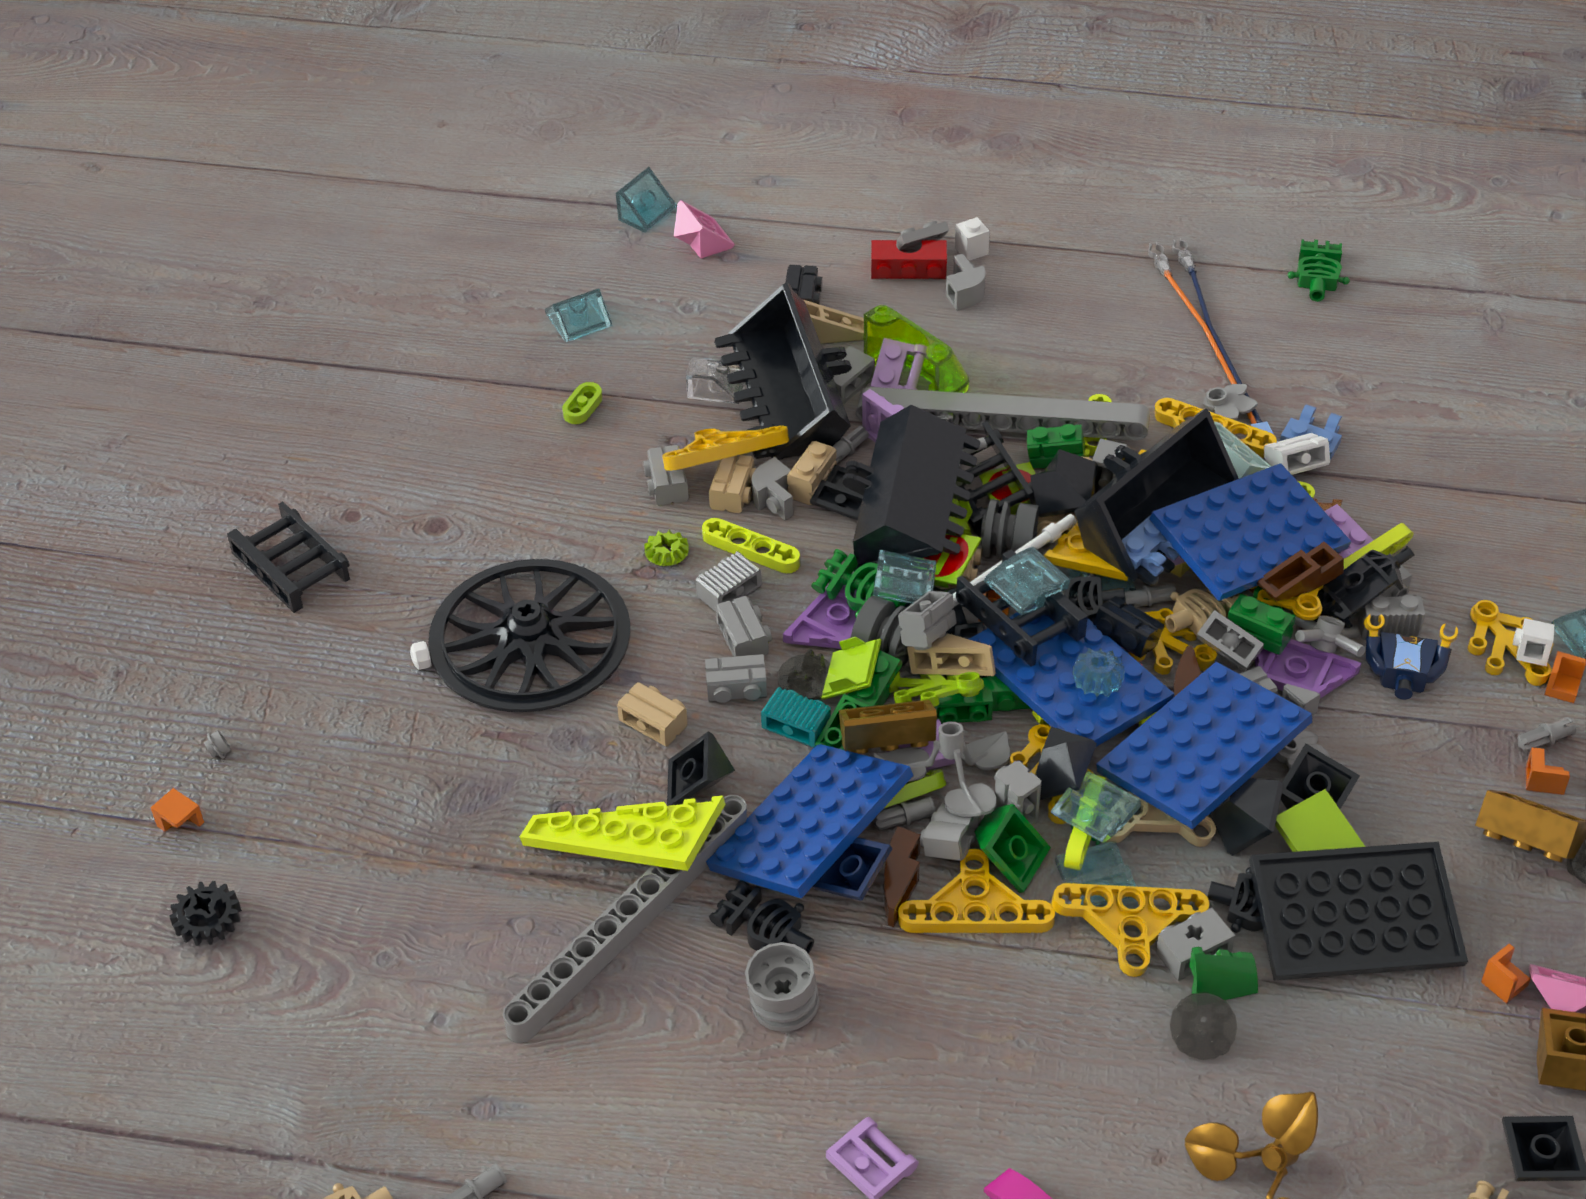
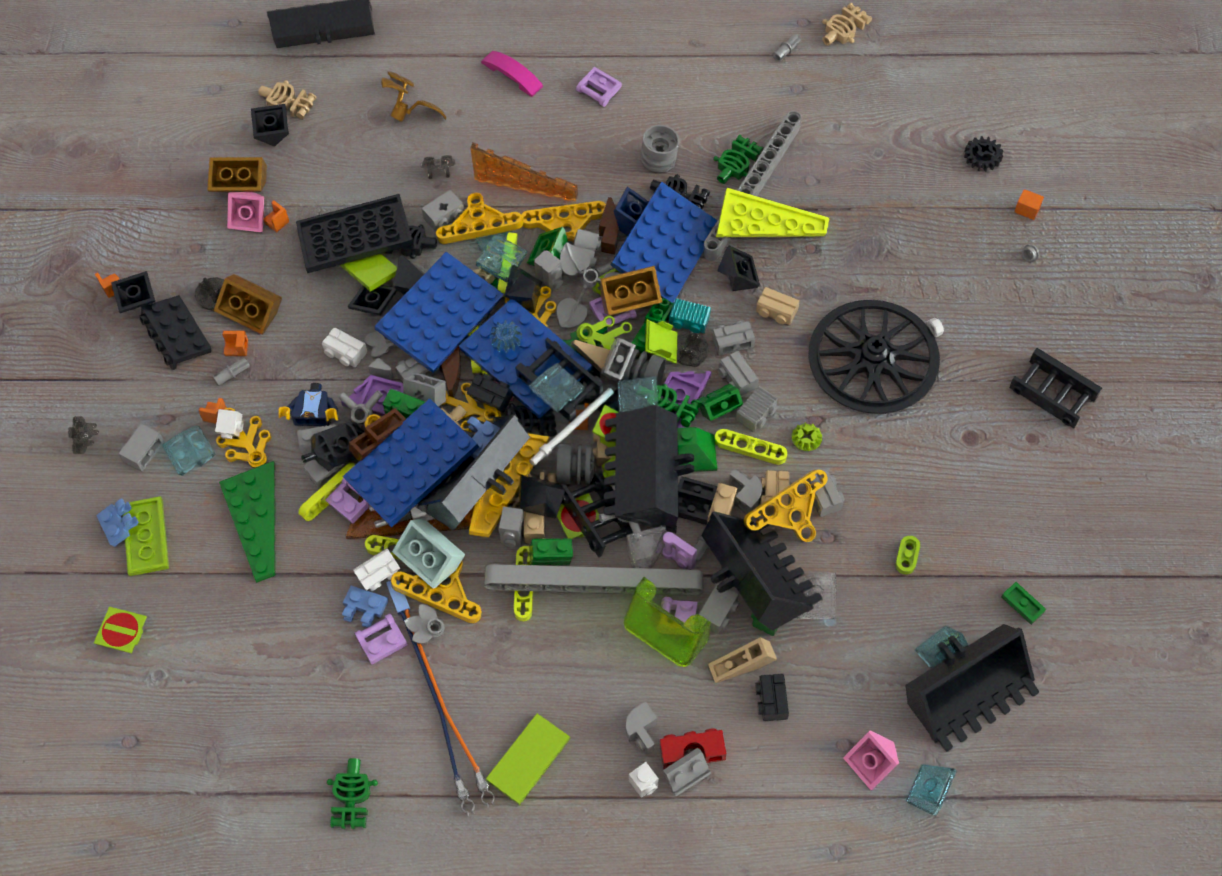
camera: 170 degrees right, 15 degrees up
(459, 343) = (1023, 603): none -> green plate
(563, 270) = (972, 684): none -> black piece
(652, 973) = (736, 161): none -> green torso
(782, 589) = (720, 402): none -> green brick
(820, 545) = (699, 444): none -> green slope
(1078, 975) = (518, 175): none -> clear orange wing
(1105, 278) = (528, 759): none -> lime tile
(1224, 973) = (422, 196): green slope -> none
(1287, 399) = (384, 644): none -> lavender plate
(1361, 741) = (344, 347): none -> white brick
(1478, 550) = (252, 508): none -> green wing

